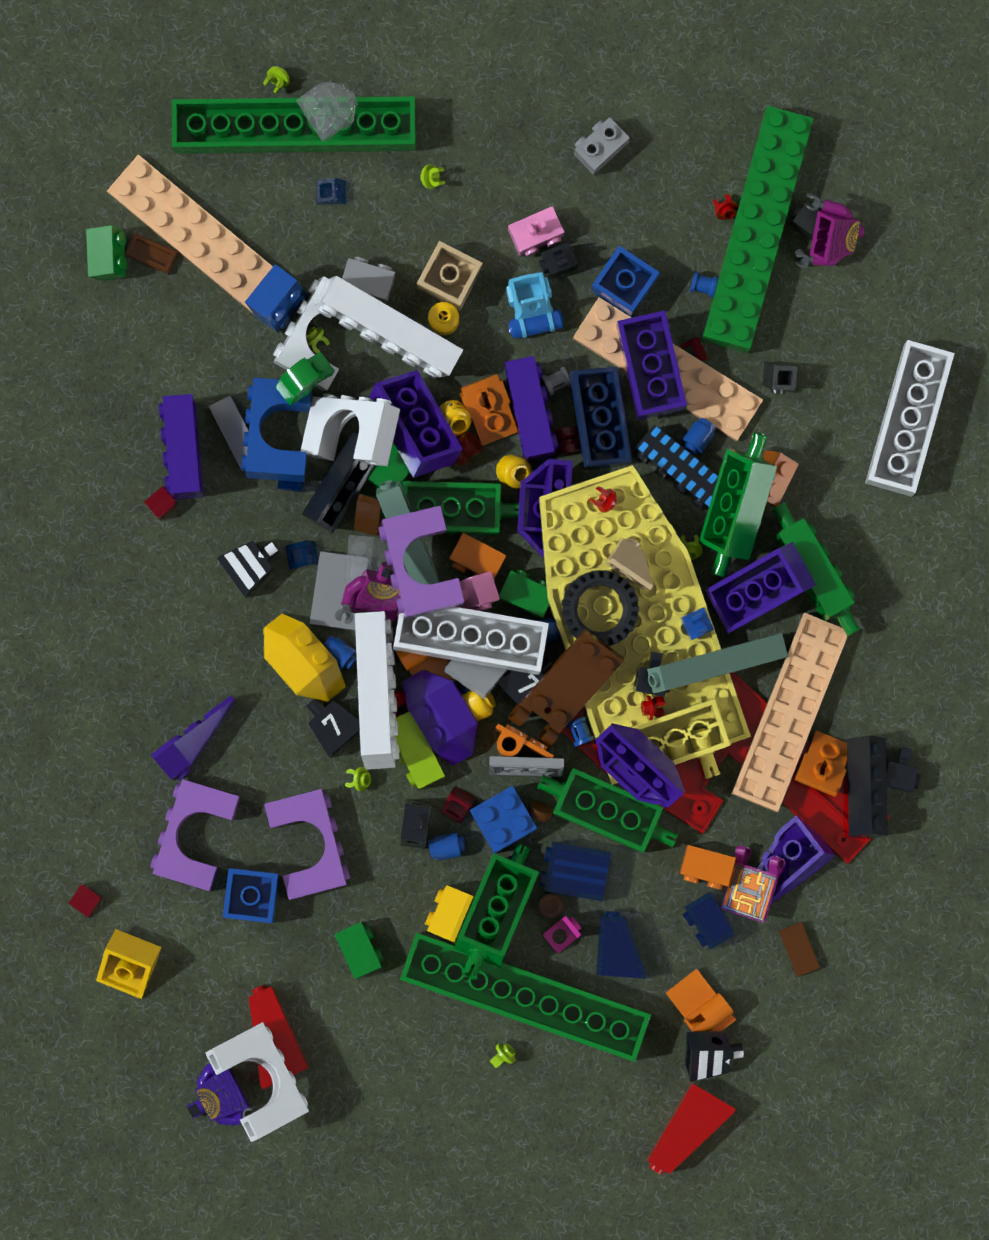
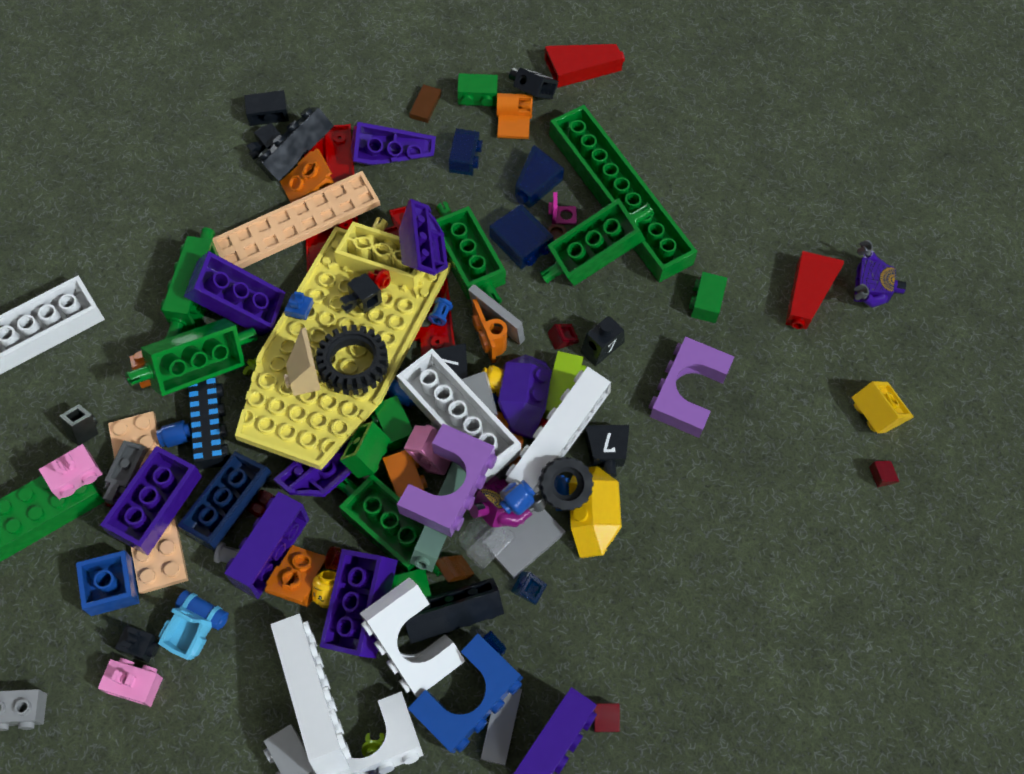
camera: 140 degrees left, 20 degrees down
(171, 861) = (753, 476): medium lavender arch -> none
(182, 751) = (736, 514): dark purple wedge -> none
(248, 565) = (576, 609): torso -> none
(251, 895) = (759, 380): blue brick -> none
(258, 1047) = (837, 234): white arch -> none
(303, 376) = (410, 710): green brick -> none
(319, 632) = (583, 488): none -> black tyre
(359, 599) = (517, 497): none -> blue head
(361, 779) = (617, 398): lime plate -> none
(442, 326) = (260, 680): yellow head -> none
(446, 846) = (592, 312): blue brick -> none
(449, 275) = (225, 703): tan slope -> none
(449, 913) = (627, 268): yellow slope -> none
(503, 819) = (541, 299): blue brick -> none
(505, 1053) = (663, 175): lime plate -> none
(512, 470) = (321, 513): yellow head -> none
(520, 544) = (365, 450): none -> green brick
(540, 811) = (512, 287): reddish brown tile -> none
(568, 685) = (423, 332): reddish brown hinge -> none
(606, 500) = (276, 422): red plate -> none
(702, 371) = (123, 470): none -> dark grey hinge
(703, 284) = (59, 535): blue bush -> none
(707, 866) = (436, 180): orange piece -> none
(717, 663) = (312, 270): sand green brick -> none
(732, 329) = (70, 472): none -> bright pink brick
(751, 888) = (422, 146): flag -> none
(758, 1001) = (477, 89): none -> green brick
(940, 810) = (266, 108): none -> black brick

